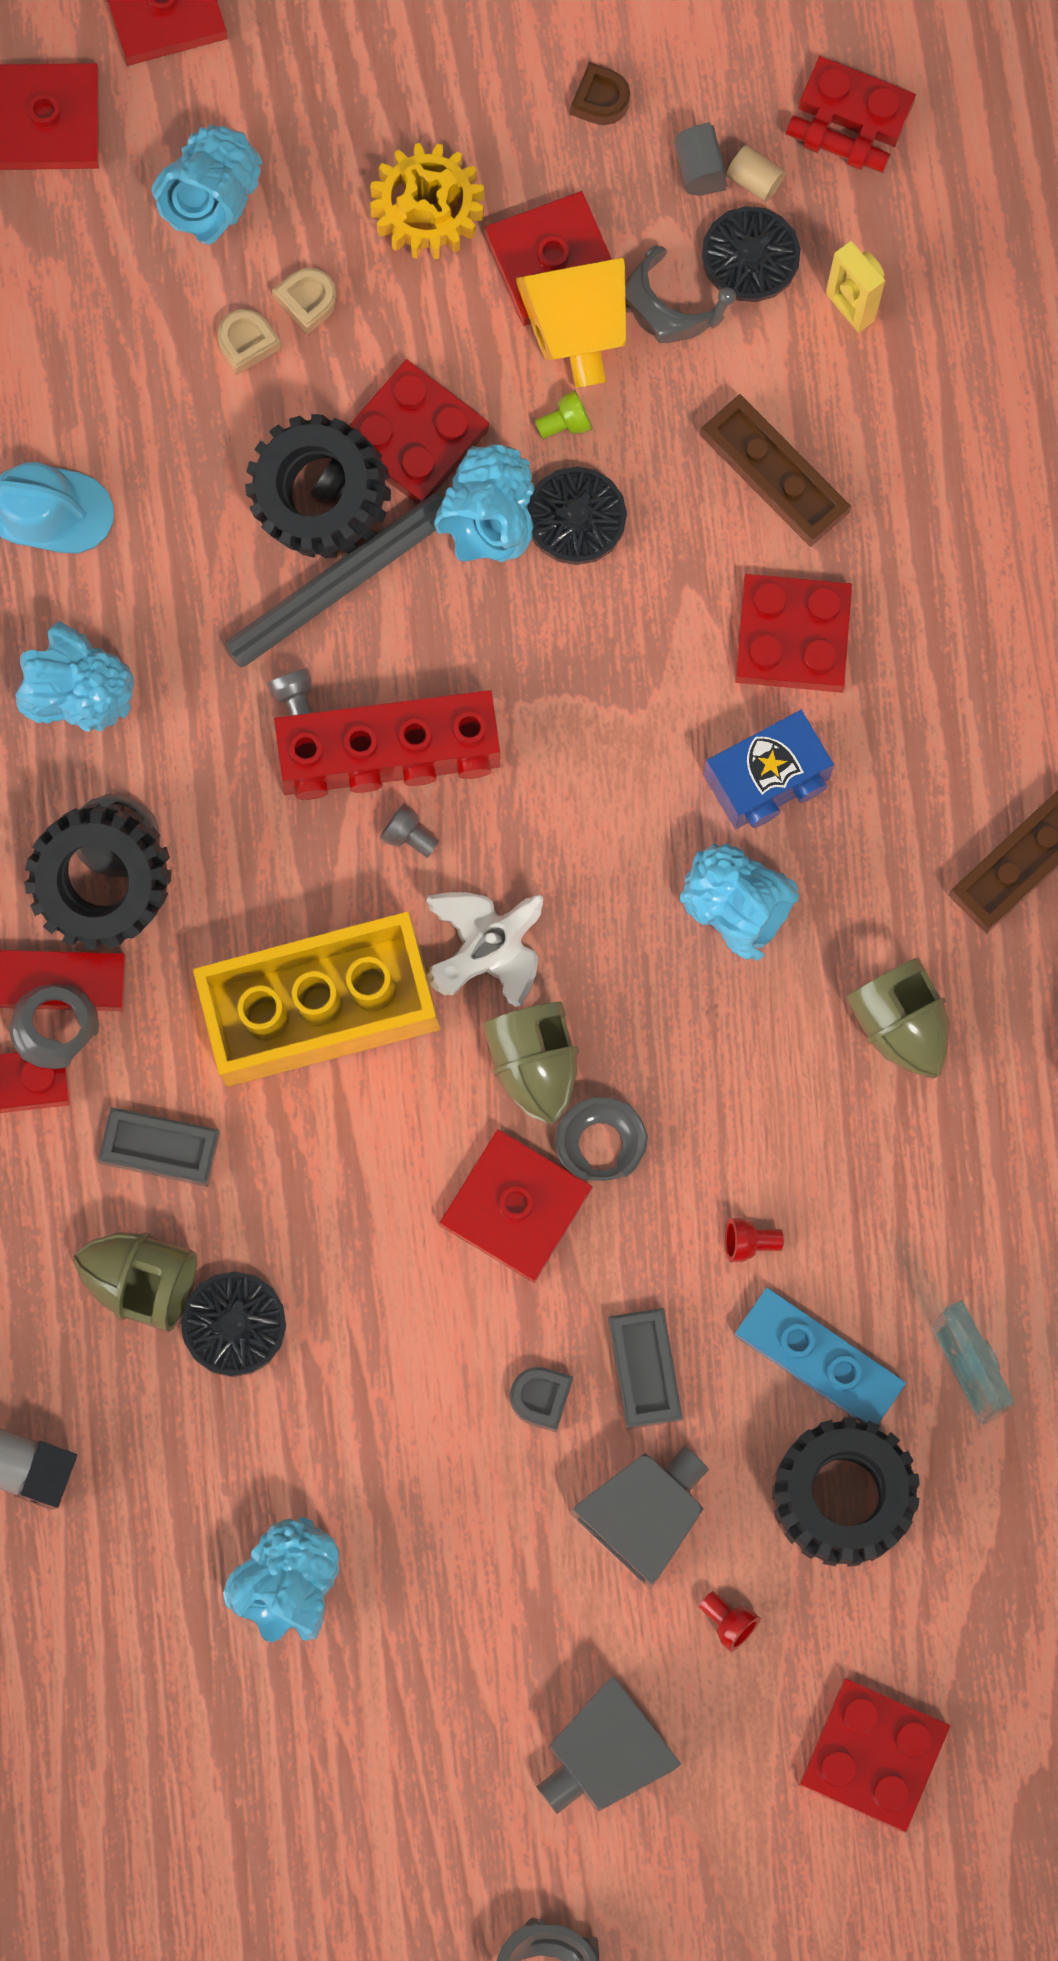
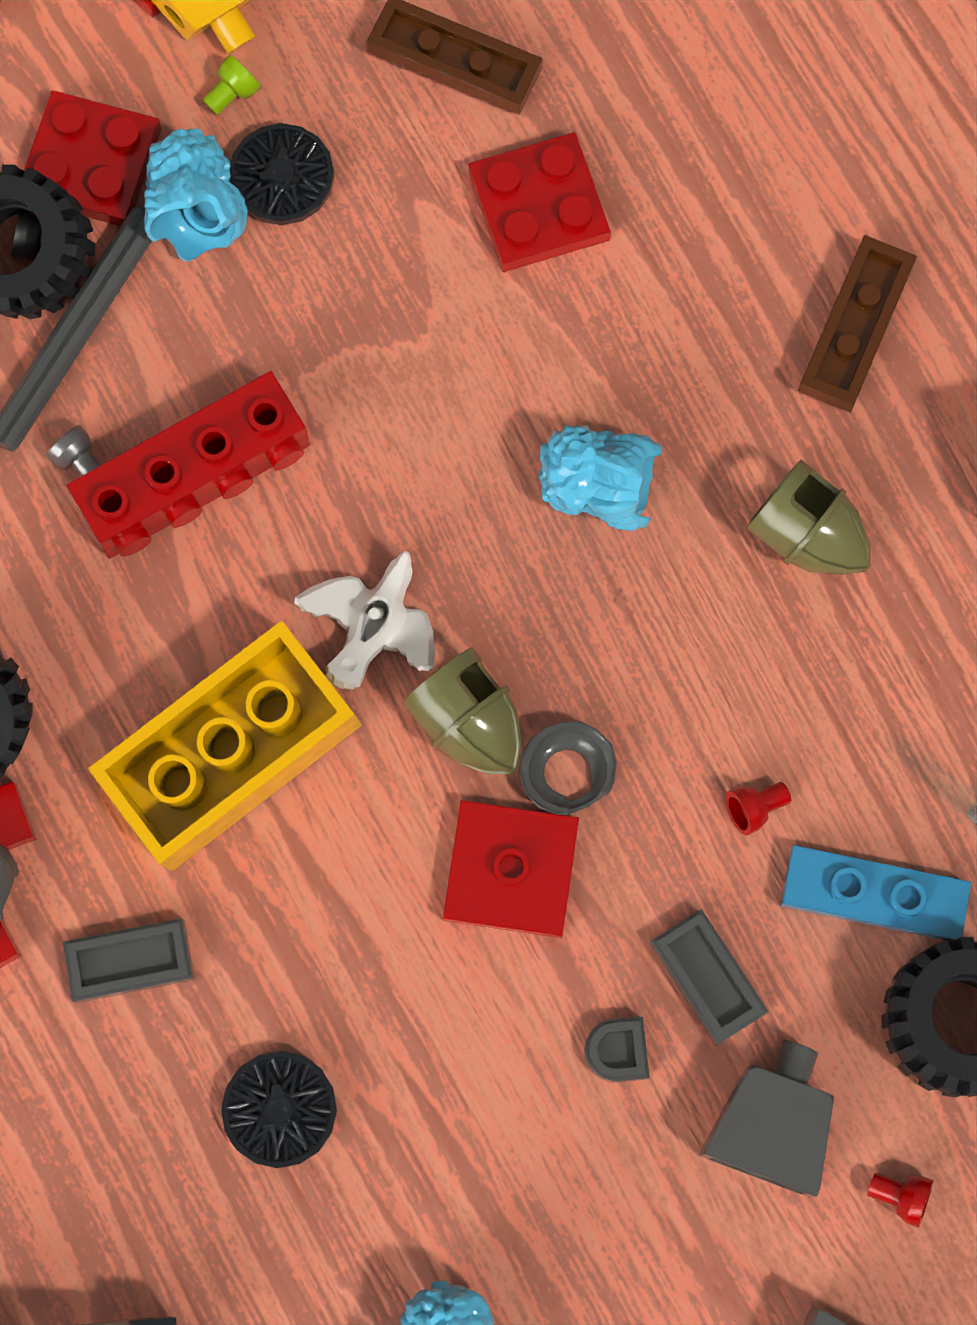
camera: 20 degrees left, 0 degrees up
(138, 1277) = (162, 1104): olive helmet -> none
(404, 829) = (241, 543): flat silver piece -> none
(769, 771) = (575, 340): blue brick -> none

